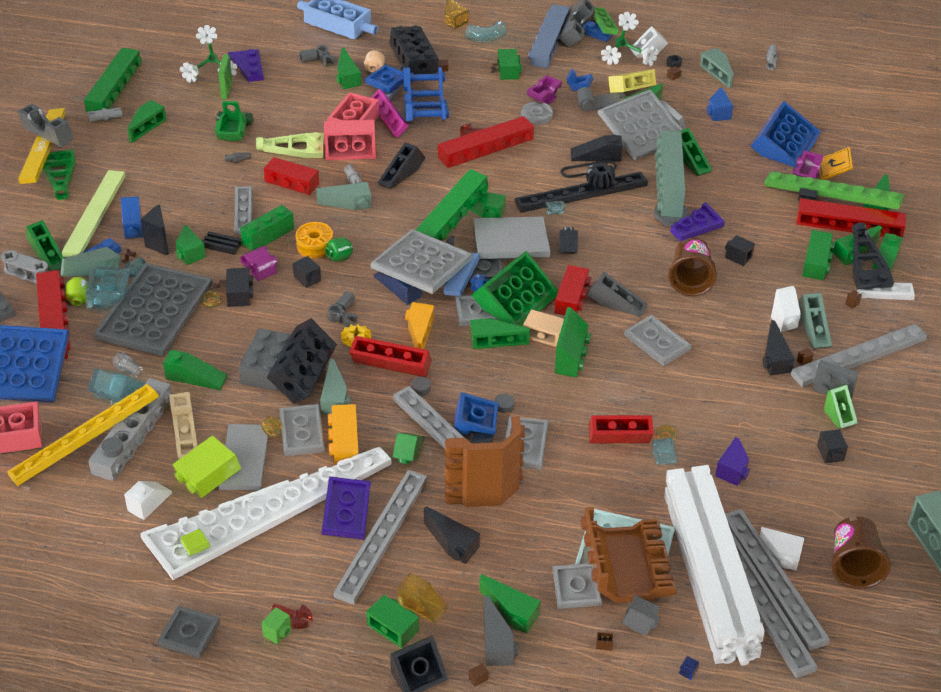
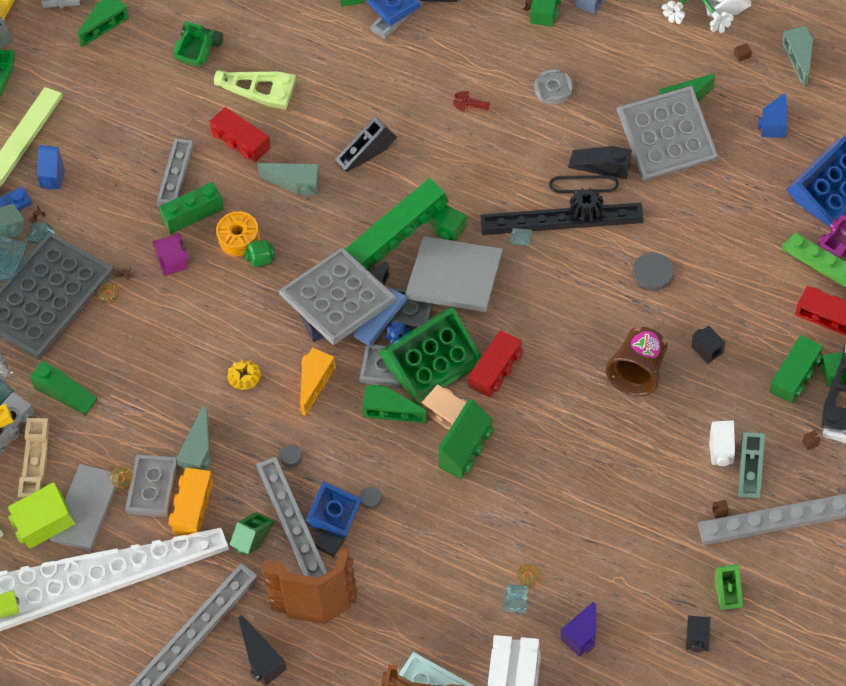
camera: 20 degrees right, 15 degrees up
(154, 231) = (70, 190): black slope -> none
(189, 246) = (101, 217): green slope -> none
(222, 243) = (133, 208): black tile -> none
(237, 157) = (190, 92): dark grey bar -> none
(238, 287) = (138, 284): black brick -> none
(261, 357) = (141, 389): dark grey brick -> none
(296, 371) = (172, 403): black brick -> none
(307, 272) = (216, 278): black brick -> none
(338, 313) = (232, 339): dark grey bar -> none
(346, 508) = (165, 595): dark purple tile -> none
(349, 139) = (317, 96): coral brick -> none
(352, 175) = (309, 148): light grey pin -> none
(356, 108) = (334, 59): coral brick -> none
(390, 114) = (378, 57): dark pink plate -> none
(390, 356) = (267, 415): red brick -> none
(411, 106) = (402, 67): blue fence -> none
(485, 141) = (476, 123): red brick -> none
(534, 441) = (377, 551): light grey tile -> none
(545, 89) = (573, 56): magenta cylinder -> none
(568, 240) = (516, 291): black slope -> none
(578, 82) = (619, 48): blue bracket -> none
(588, 102) = (621, 81): dark grey door -> none
(616, 296) = (542, 381): dark grey slope -> none
(620, 429) = (476, 563): red brick -> none
(632, 81) = (682, 60): light yellow slope -> none
(657, 340) = (567, 449): light grey tile -> none
(670, 174) = (667, 219): sand green brick -> none
(674, 60) = (751, 32): black tile -> none
(678, 117) = (711, 123): light grey tile -> none
(693, 155) = (709, 187): green slope -> none
(698, 223) = (679, 293): dark purple wing -> none
(778, 355) = (688, 497): black slope -> none
(807, 194) = (821, 280): black tile -> none
(833, 376) = (729, 550): dark grey plate -> none

